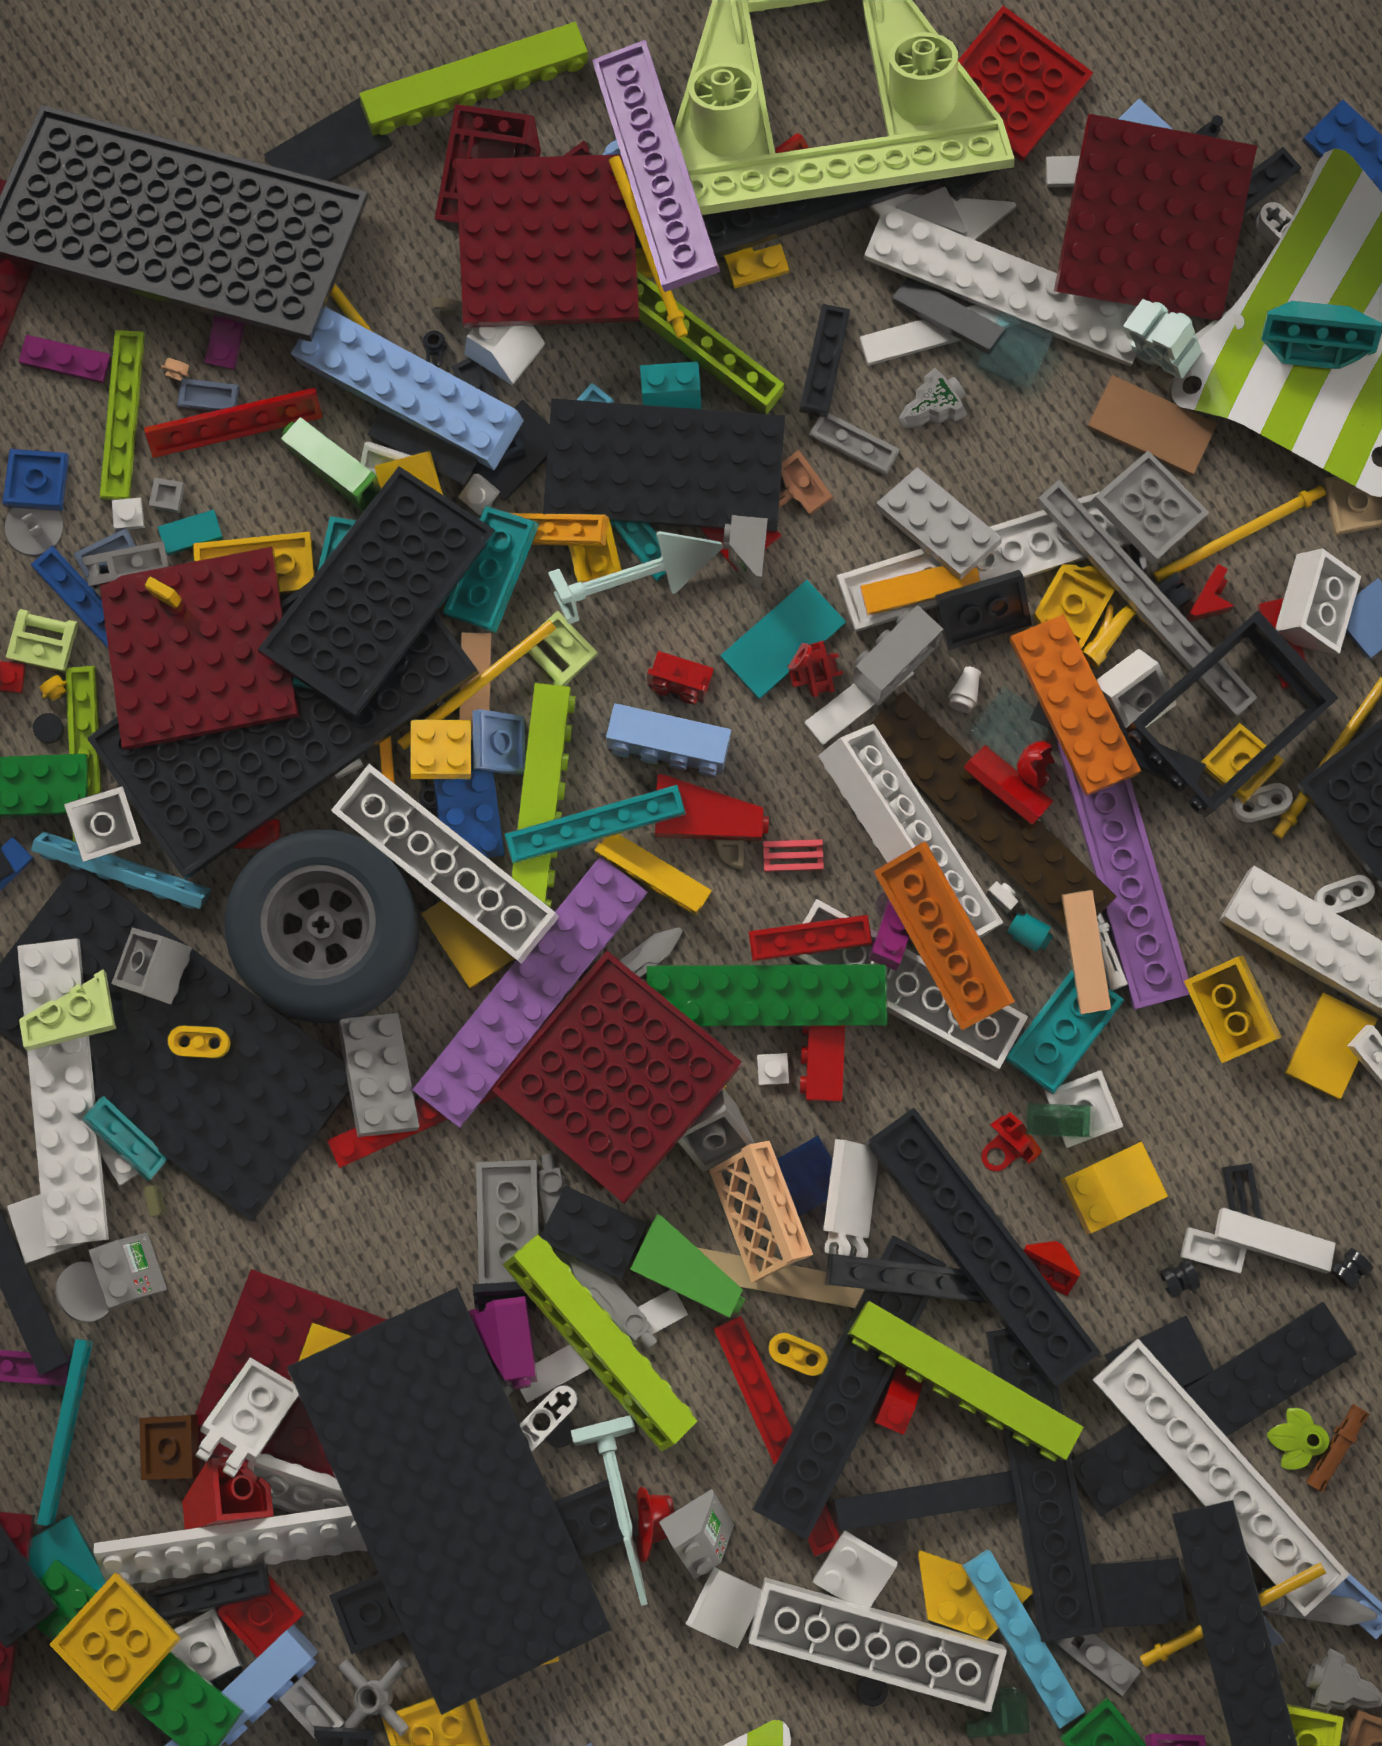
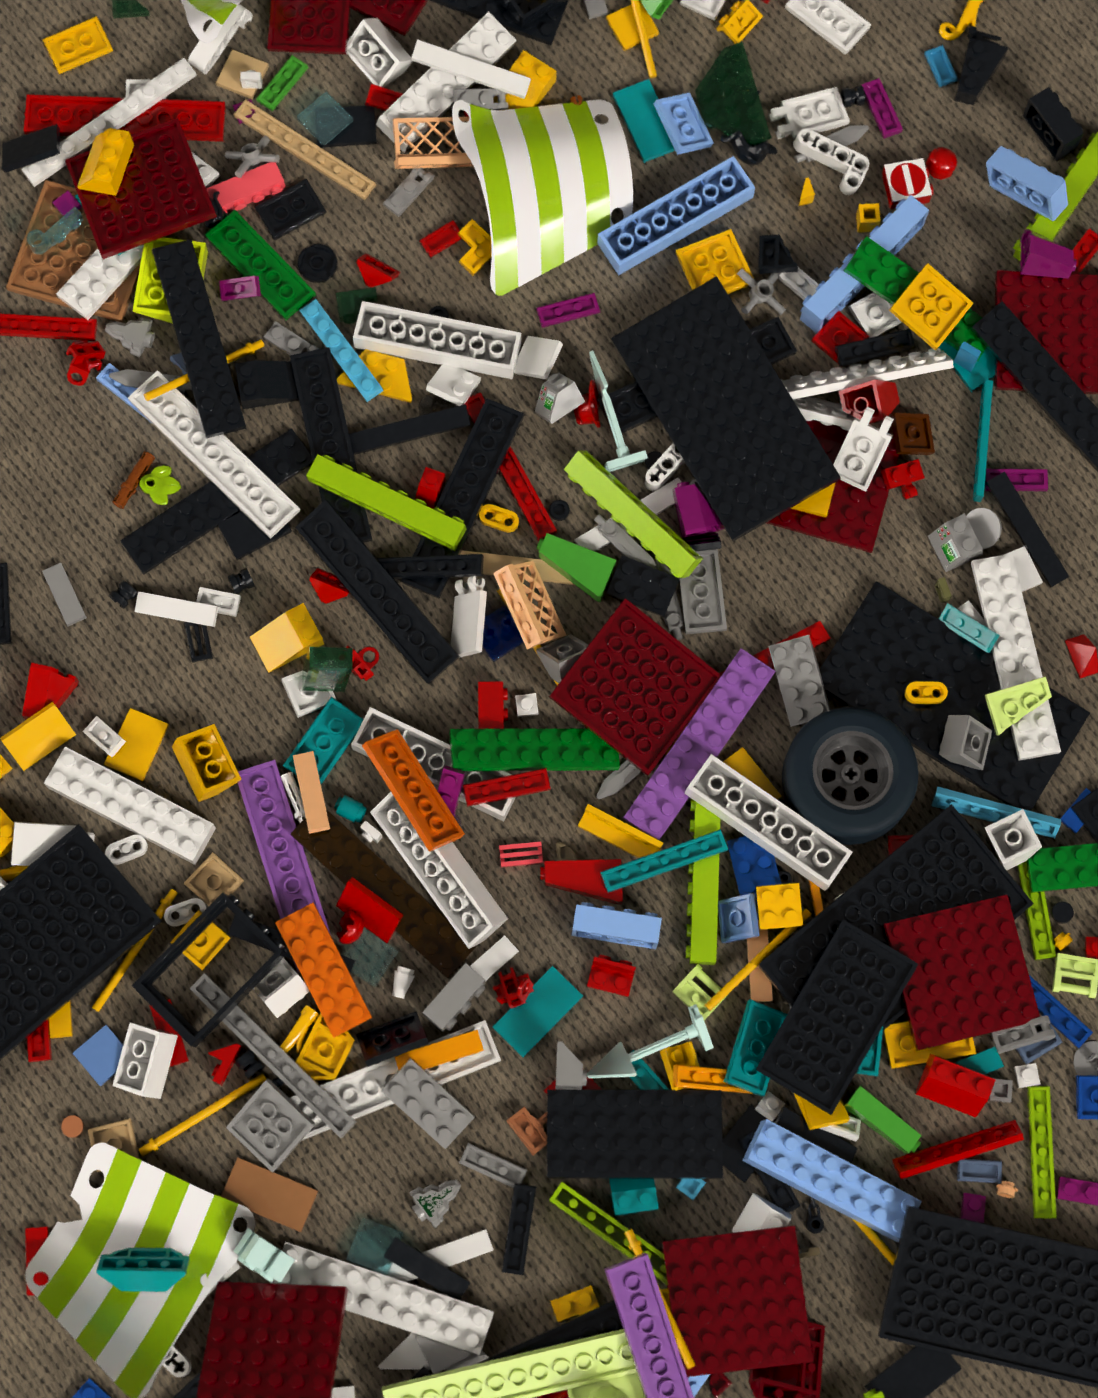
camera: 175 degrees right, 5 degrees down
(70, 1561) = (967, 356): none -> dark azure tile
(163, 592) = (992, 1006): yellow tile -> none
(192, 1381) = (903, 476): none -> red plate
(225, 504) = (954, 1086): none -> red slope
(672, 1688) = (568, 310): none -> magenta tile
(707, 1362) = (559, 510): none -> black tile
(1222, 844) = (213, 879): none -> tan tile

